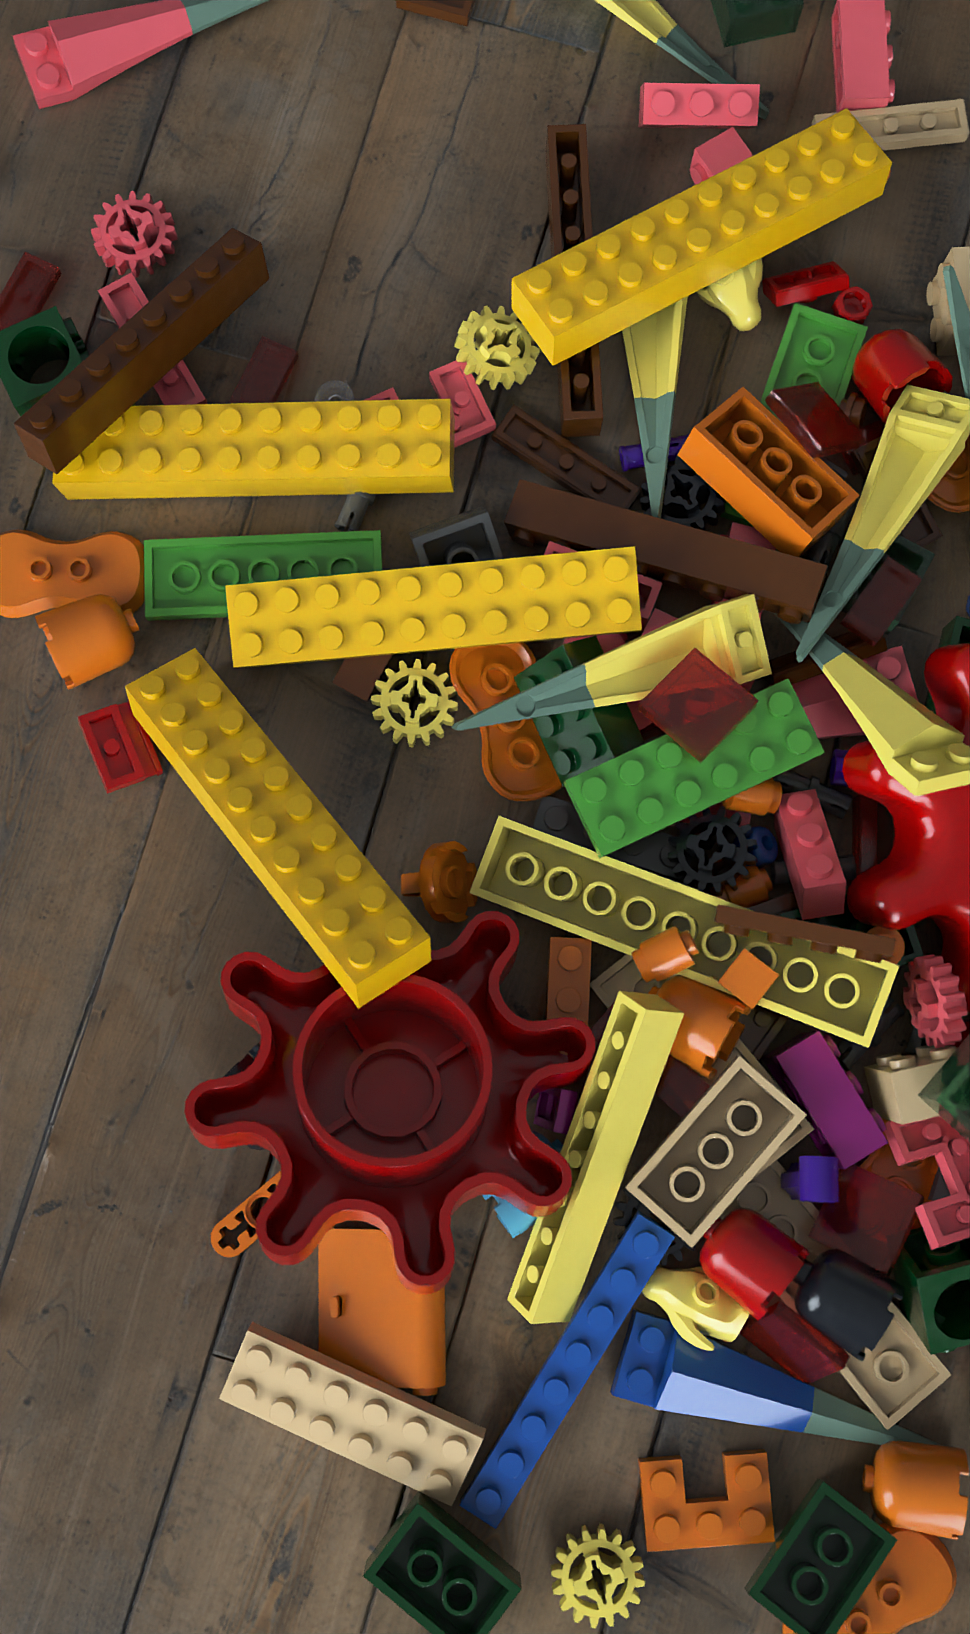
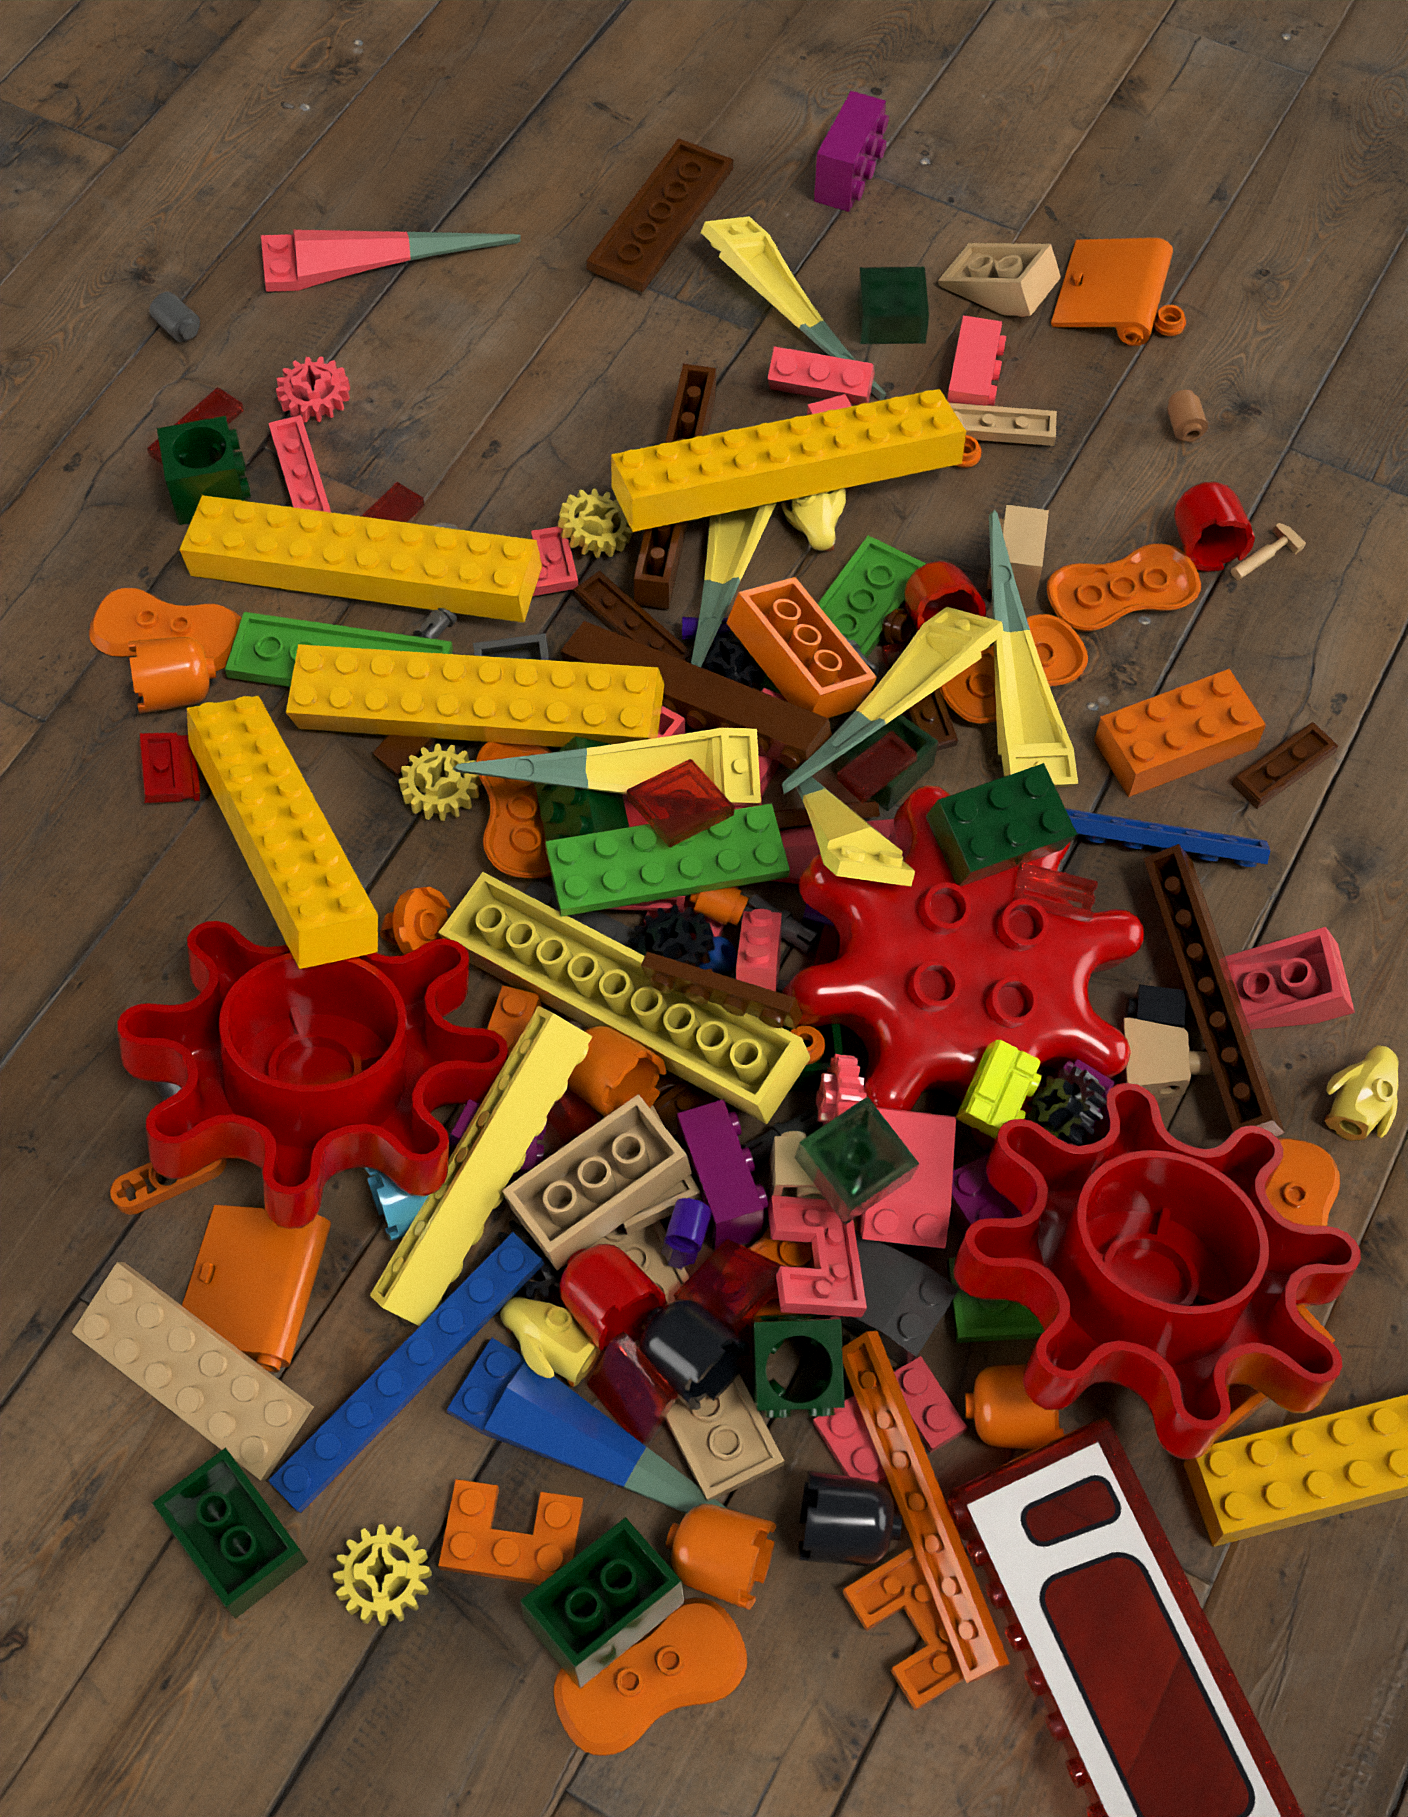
camera: 15 degrees right, 20 degrees down
(142, 351) = (287, 463): reddish brown brick -> none
(665, 954) = (593, 996): orange brick -> none
(748, 978) = (663, 1029): orange tile -> none
(805, 284) = (882, 525): red plate -> none
(815, 419) = (855, 617): clear red tile -> none
(853, 305) = (922, 547): red tile -> none

